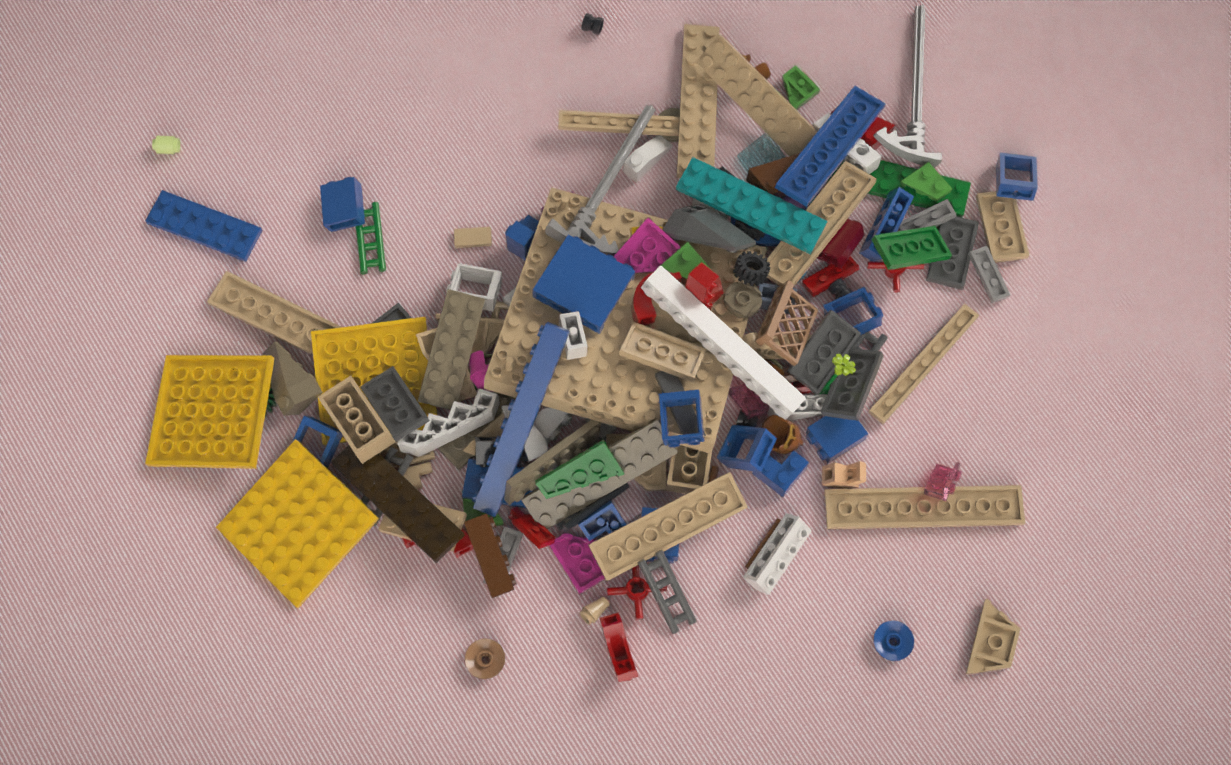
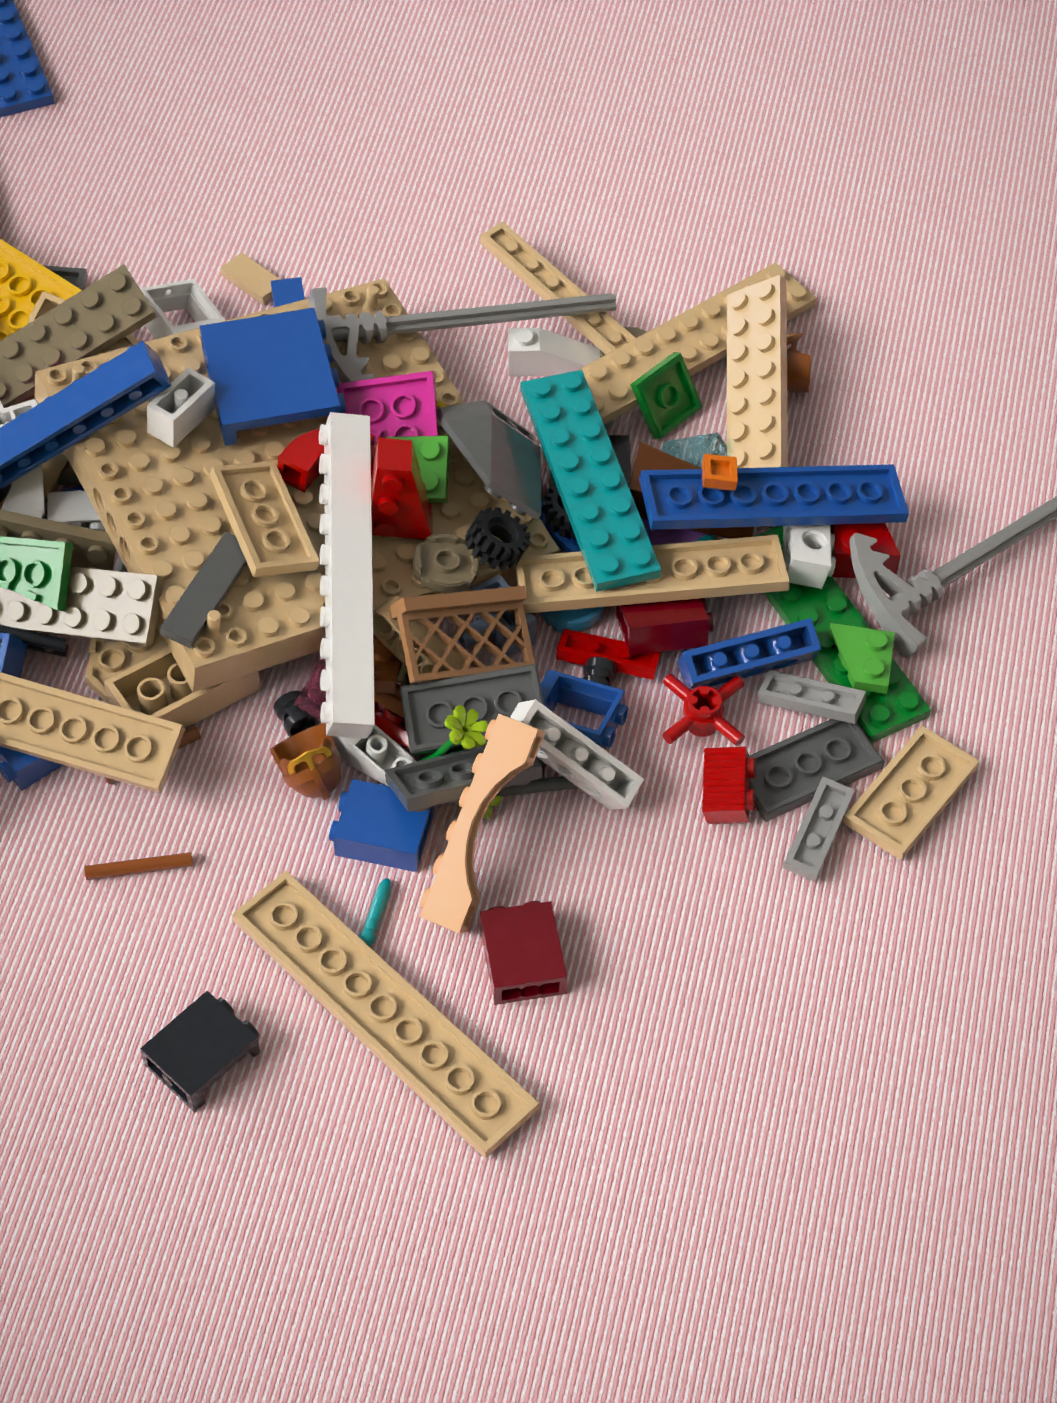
camera: 45 degrees right, 15 degrees down
(342, 204) = (157, 134): blue brick -> none
(363, 247) = (144, 206): green bar -> none
(592, 24) = (665, 182): black wheel -> none
(679, 399) = (167, 572): blue window -> none
(721, 133) = (666, 395): none -> green tile
(757, 454) = (255, 734): blue window -> none
(777, 553) = (132, 882): white brick -> none
(784, 476) = (259, 809): blue brick -> none
(799, 87) = (833, 433): bright green wing -> none
(808, 155) = (719, 472): none -> orange plate
(844, 476) = (327, 876): light nougat brick -> none
(873, 471) = (376, 912): none -> teal piece
(878, 360) = (454, 891): none -> light nougat arch
(883, 334) = (580, 758): none -> white brick
(883, 590) = (199, 1048): none -> black panel
(900, 633) = (133, 1105): blue dish -> none
(911, 247) = (742, 698): green plate -> none
(923, 364) = (608, 851): tan plate -> none
(940, 288) = (727, 785): none -> red brick
(943, 481) = (440, 997): clear pink bracket -> none
(945, 432) = (523, 952): none -> dark red brick
(993, 641) = (258, 1251): tan wing -> none
(1006, 187) = (991, 771): blue window -> none

